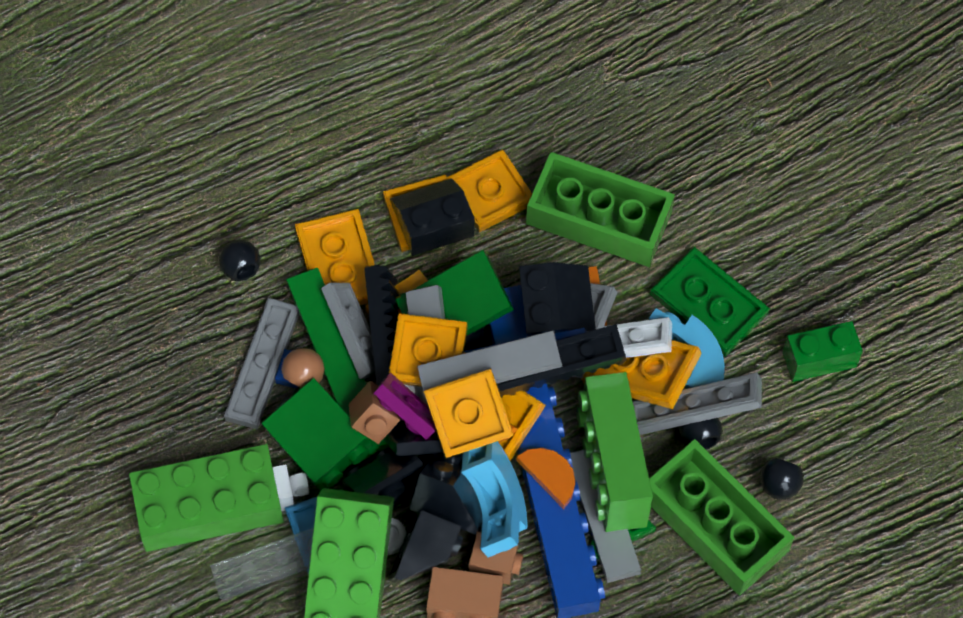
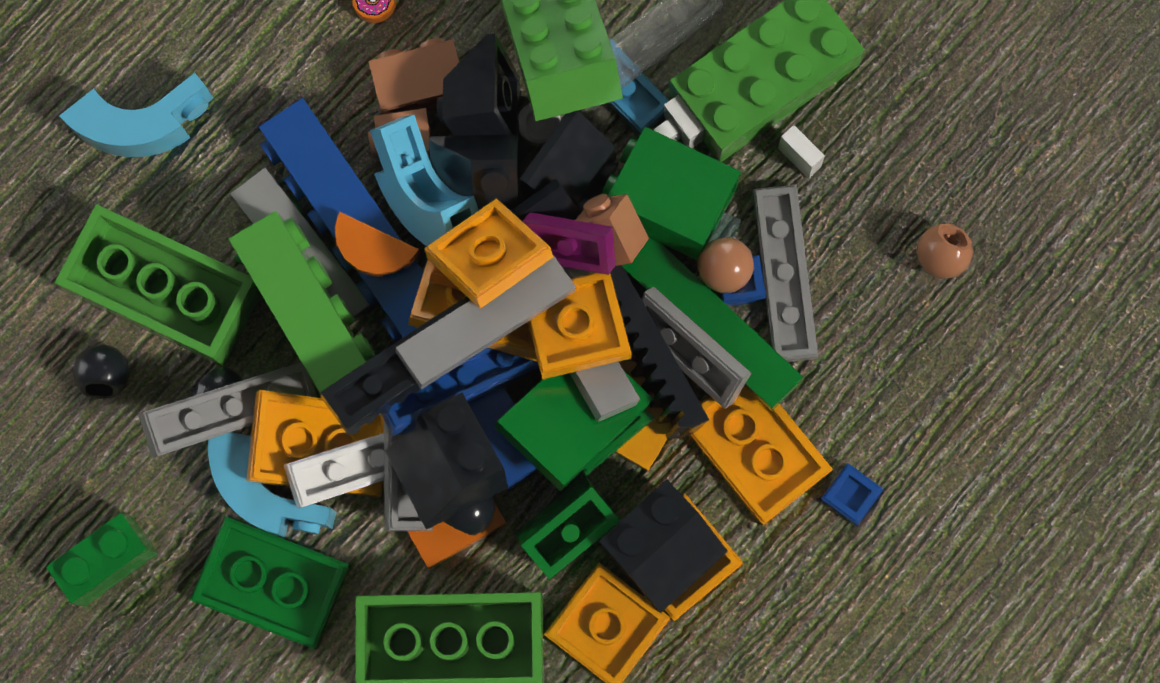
camera: 165 degrees right, 15 degrees up
(146, 326) = (944, 251): none -> nougat piece
(209, 433) = (801, 151): none -> white tile
(239, 260) = (877, 387): black piece -> none
(290, 207) = (851, 494): none -> blue tile
(501, 240) = (566, 527): none -> green brick

